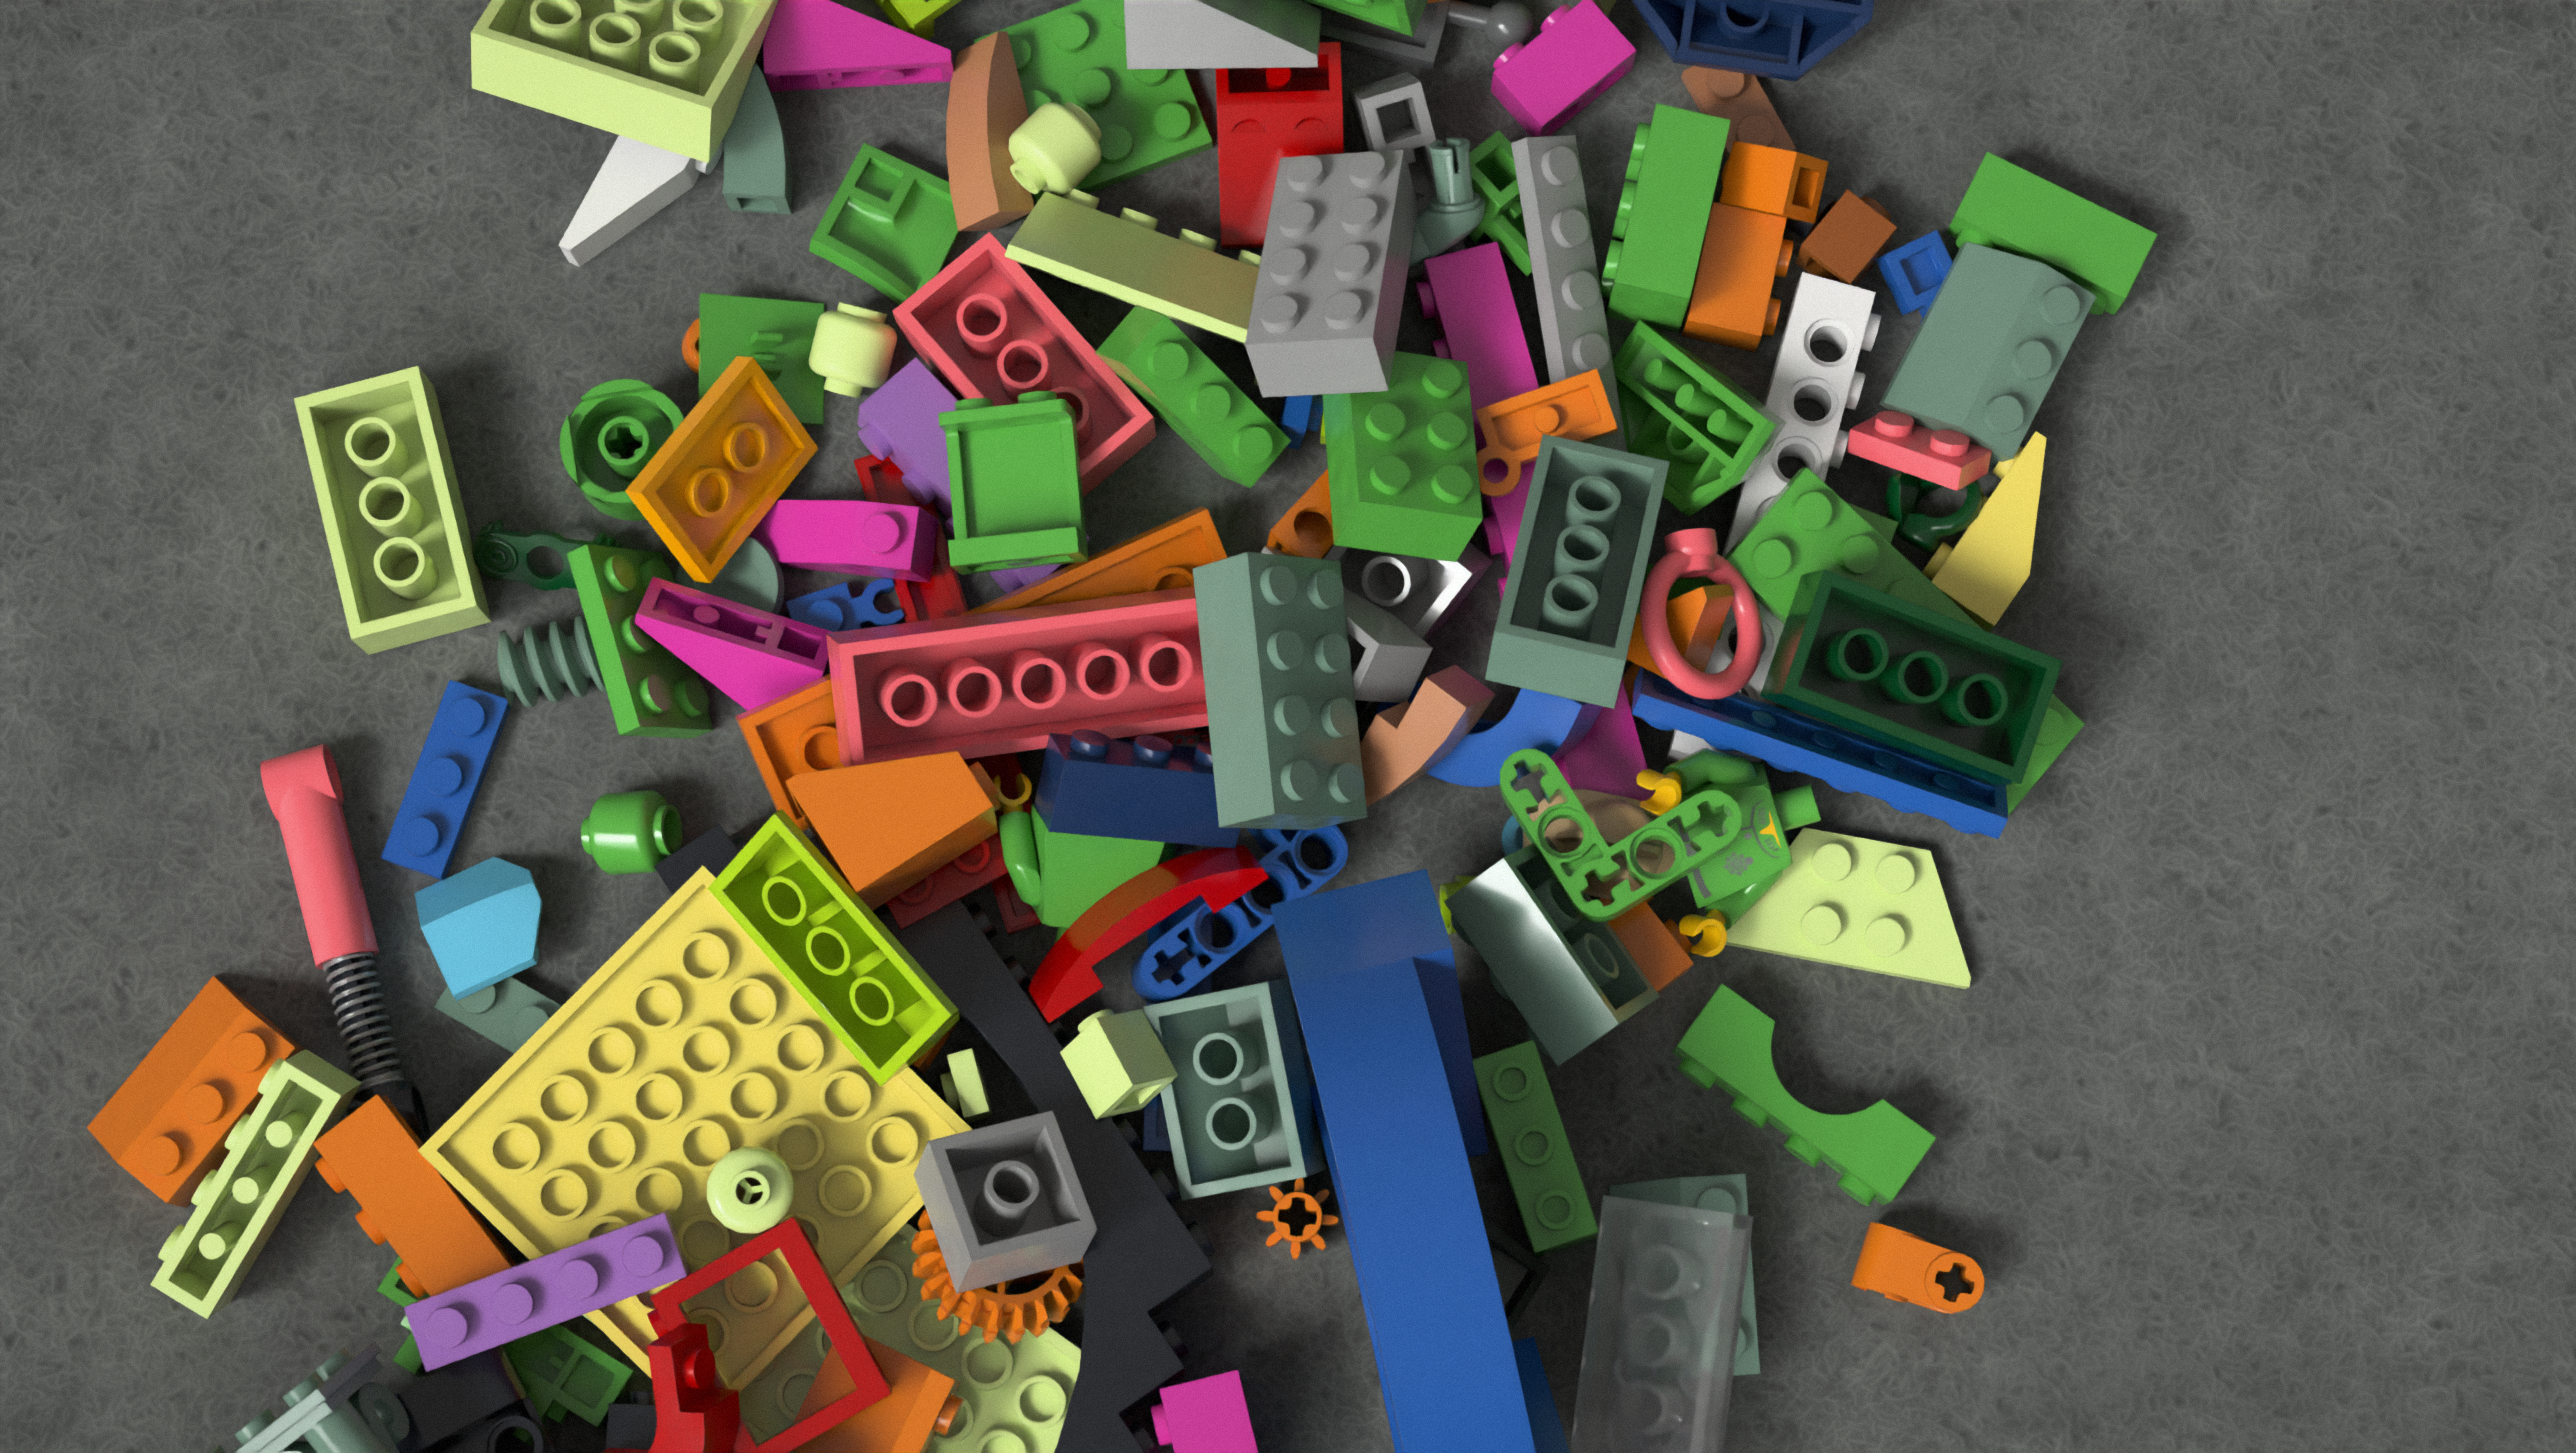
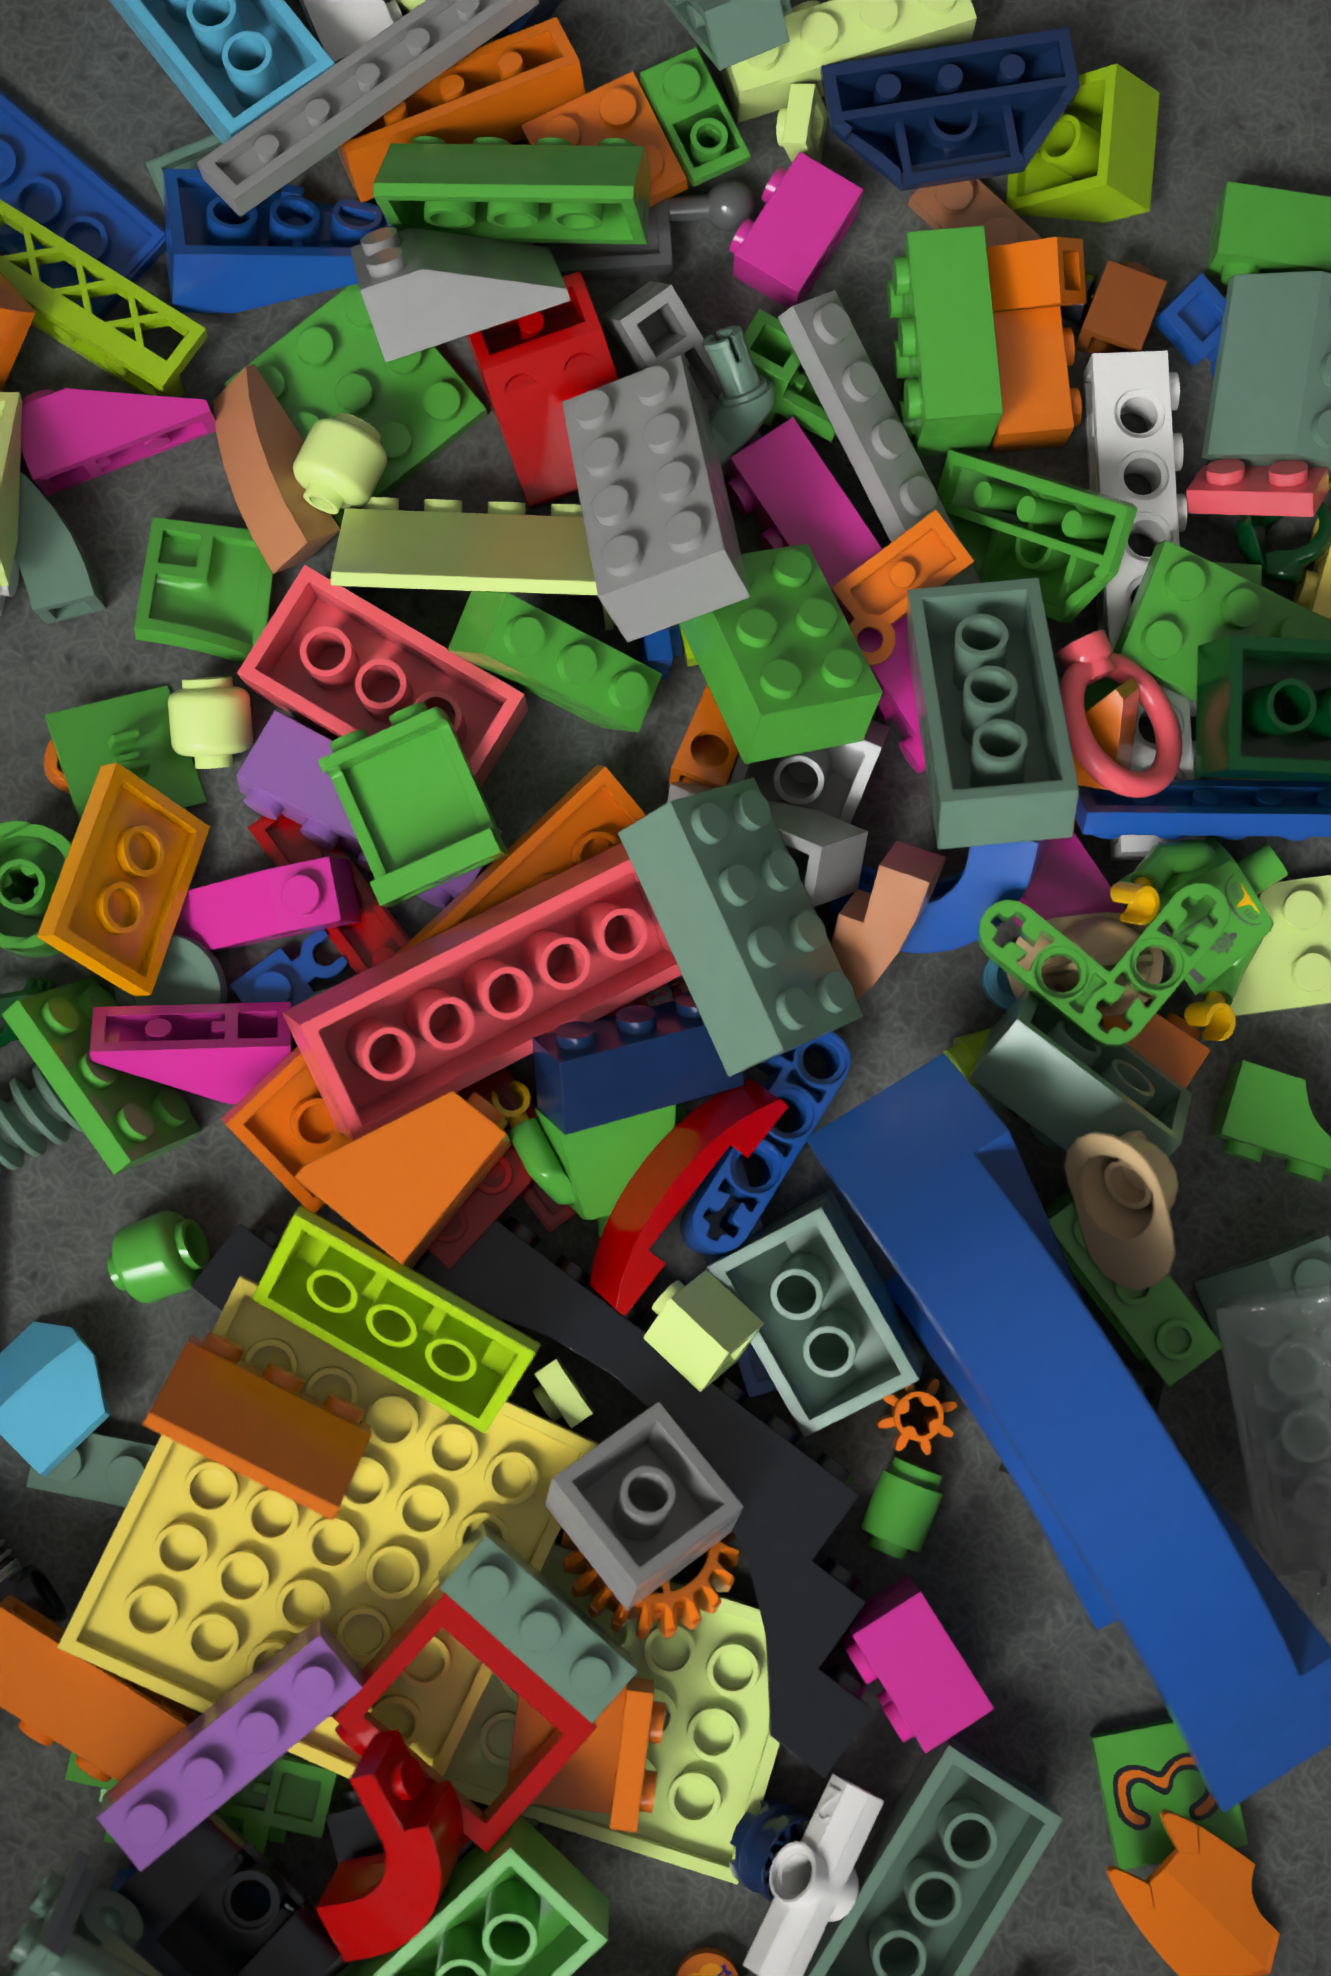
camera: 20 degrees left, 5 degrees up
(678, 998) = (261, 1423): none -> orange slope
(776, 1188) = (389, 1554): yellowish green head -> none
(869, 1279) = (537, 1622): none -> sand green brick
(1254, 1303) = (902, 1508): none -> bright green brick
(1545, 1055) = (1124, 1205): none -> tan piece
(1872, 86) = (1097, 155): none -> lime slope

